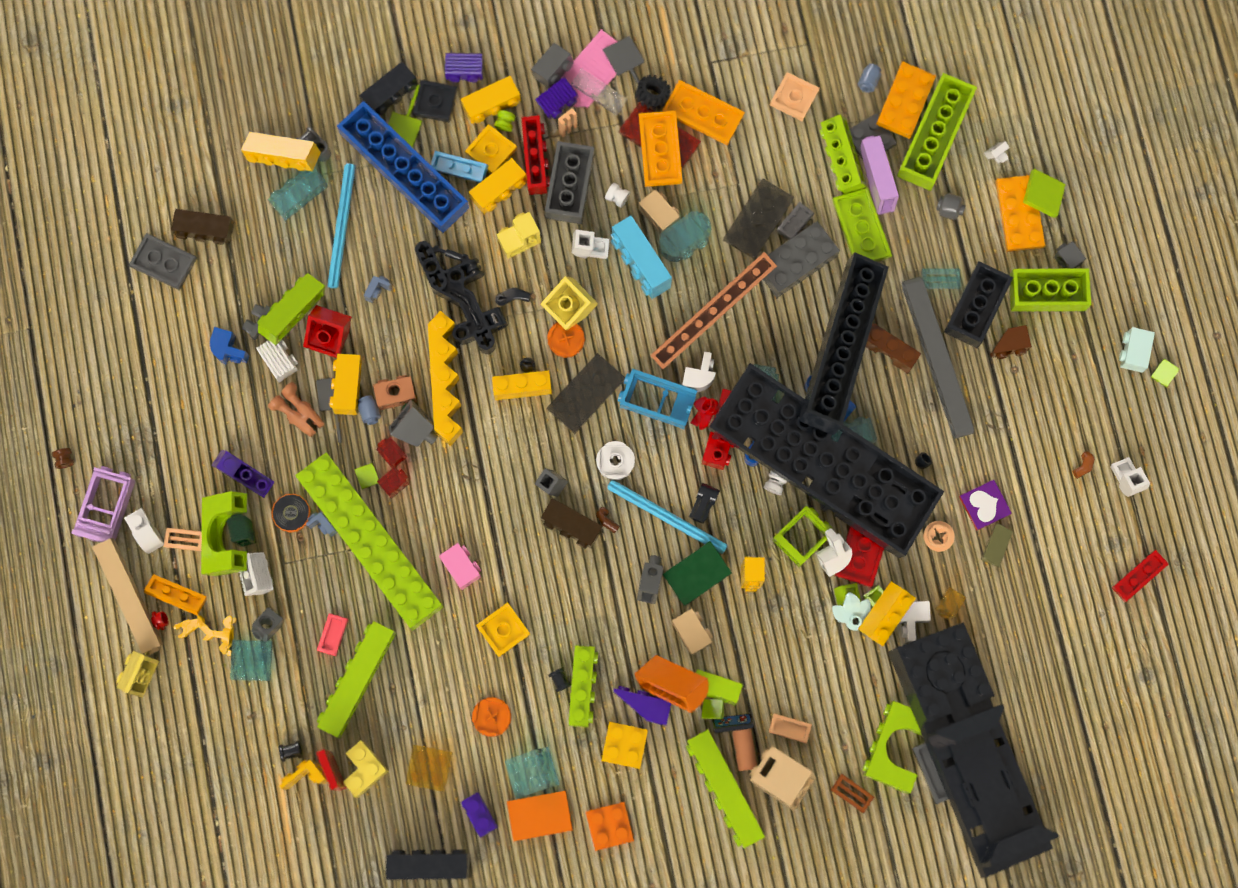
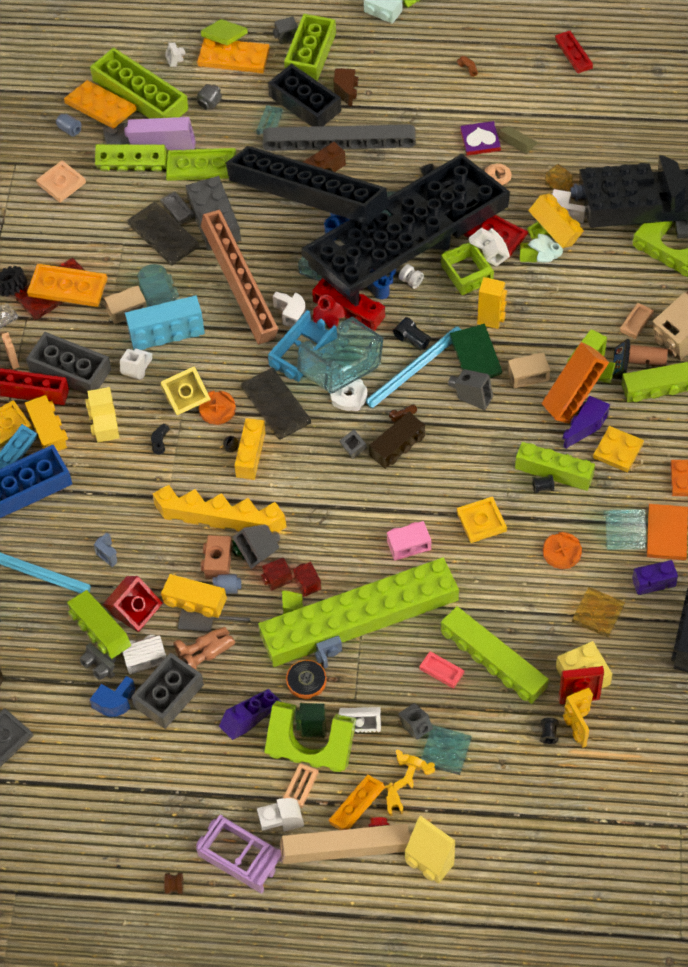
camera: 70 degrees left, 20 degrees down
(241, 392) = (167, 690): none -> dark grey brick
(477, 323) = (122, 494): black beam -> none
(617, 195) = (96, 332): white wheel -> none
(643, 441) = (344, 359): none -> clear light blue windscreen
(704, 112) = (46, 248): light orange plate -> none
(938, 625) = (576, 192): none -> sand blue plate
(1130, 479) = (493, 36): white brick -> none

